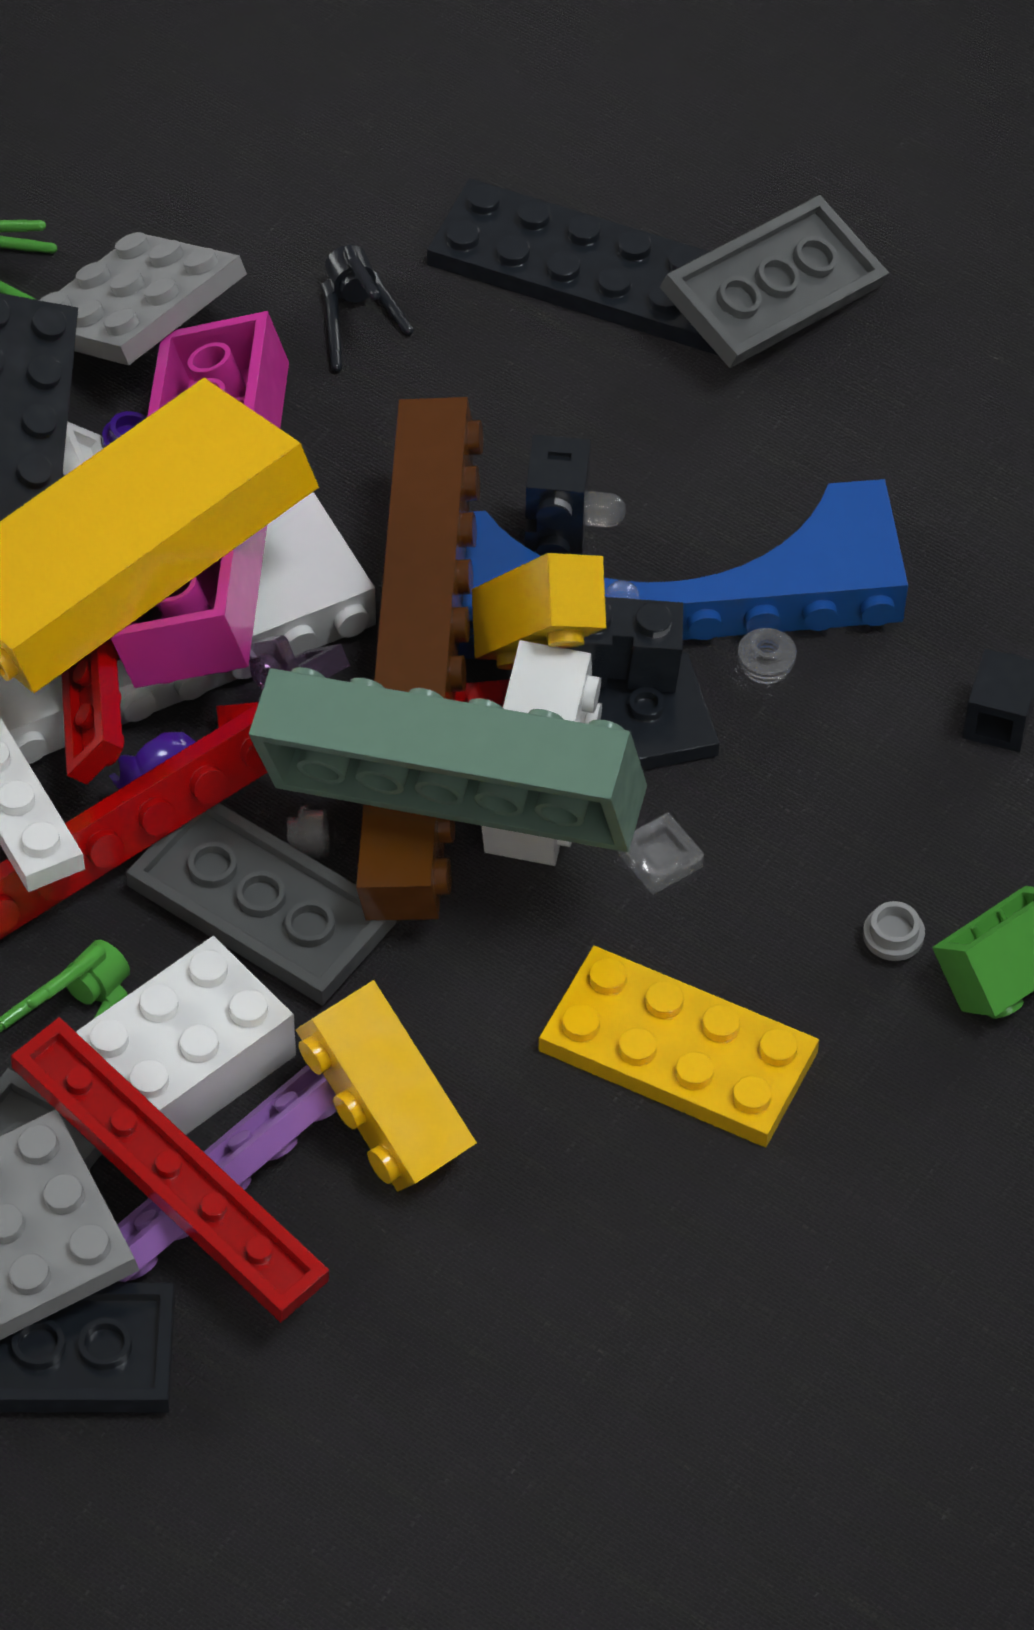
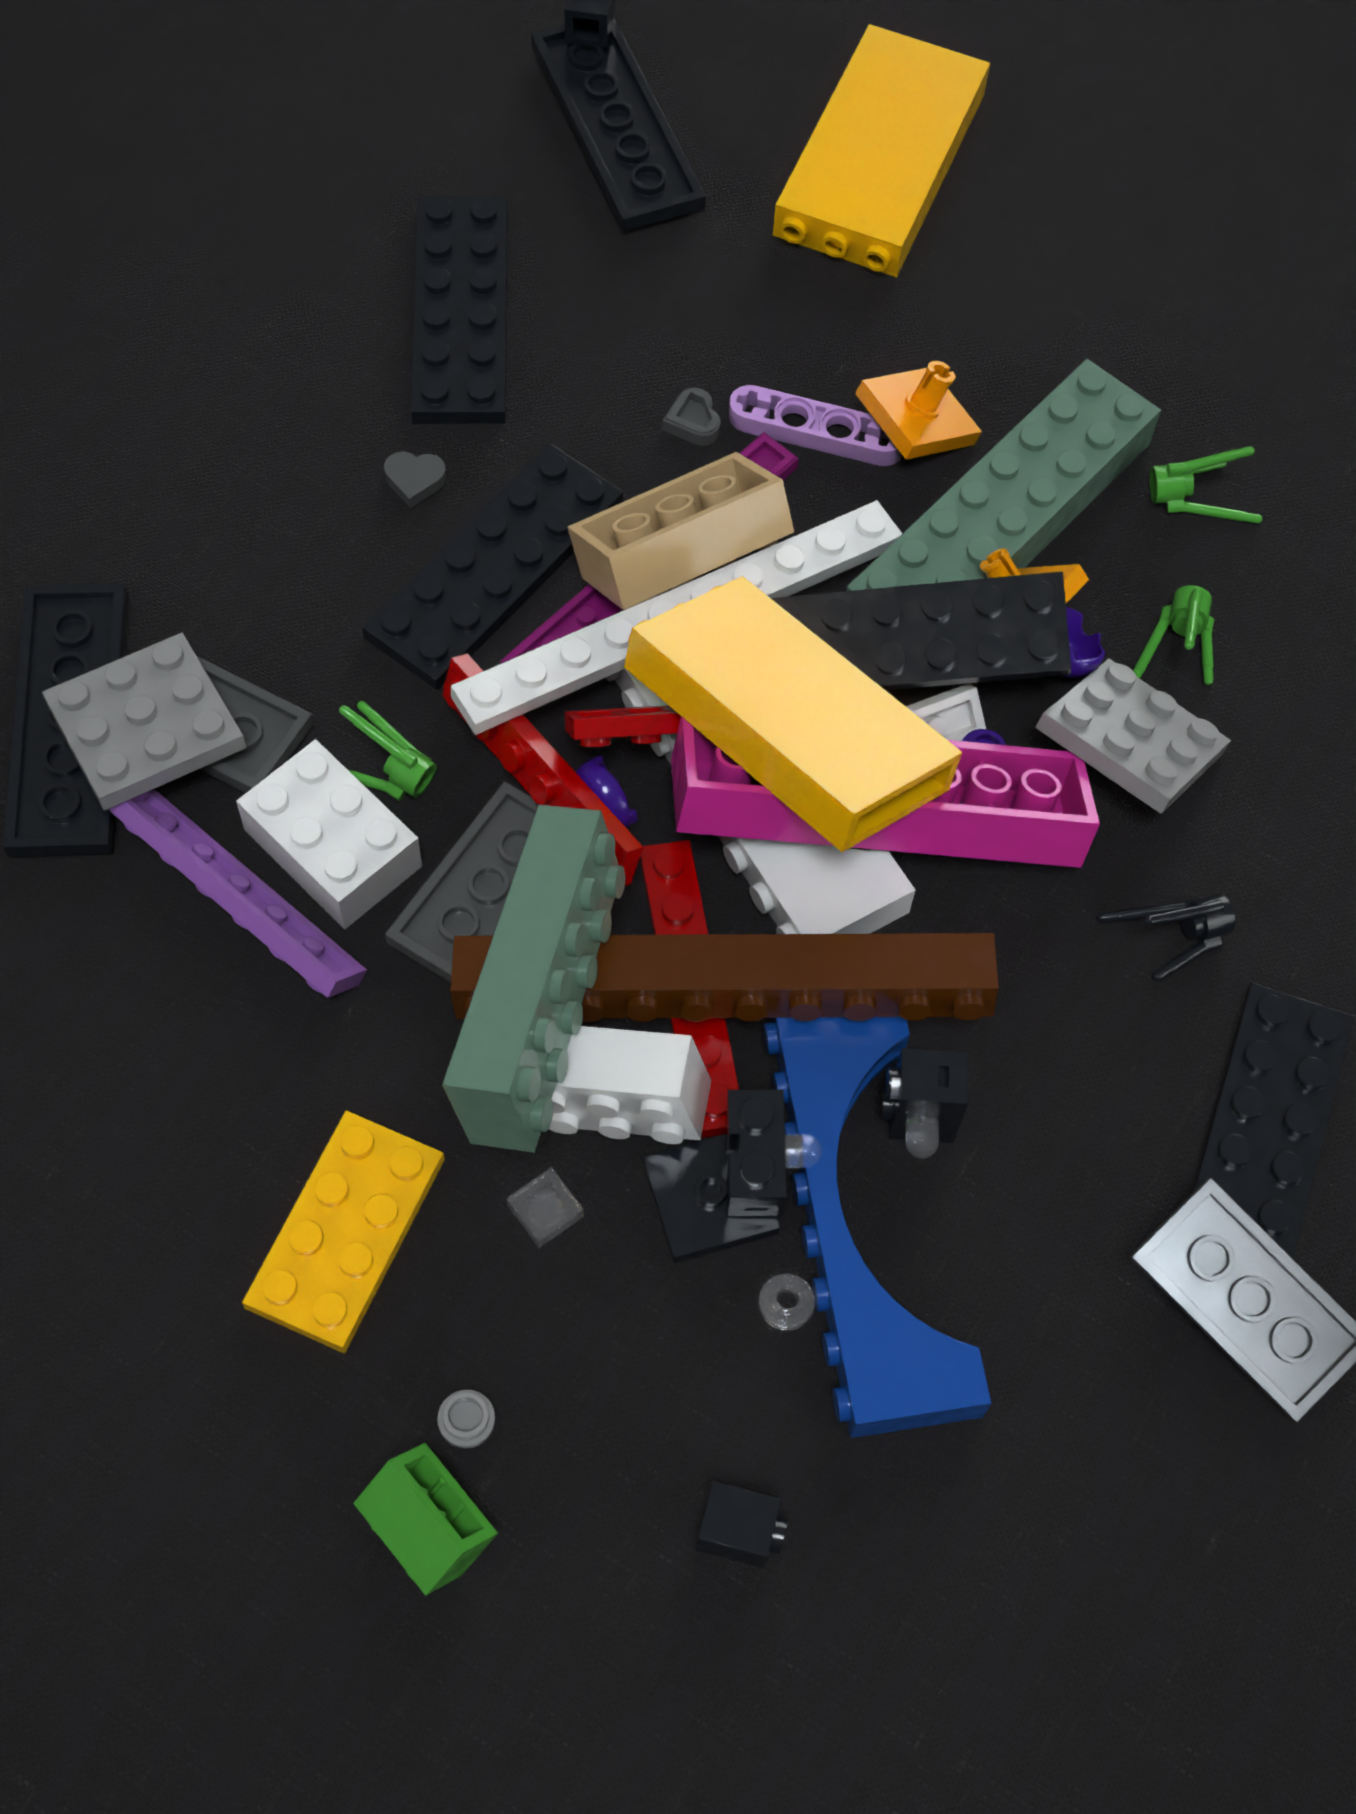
camera: 85 degrees right, 10 degrees up
(170, 1169) = (179, 818): red plate -> none
(277, 654) = (719, 896): clear purple bracket -> none
(384, 1087) = (266, 975): yellow brick -> none
(541, 602) = (739, 1056): yellow brick -> none

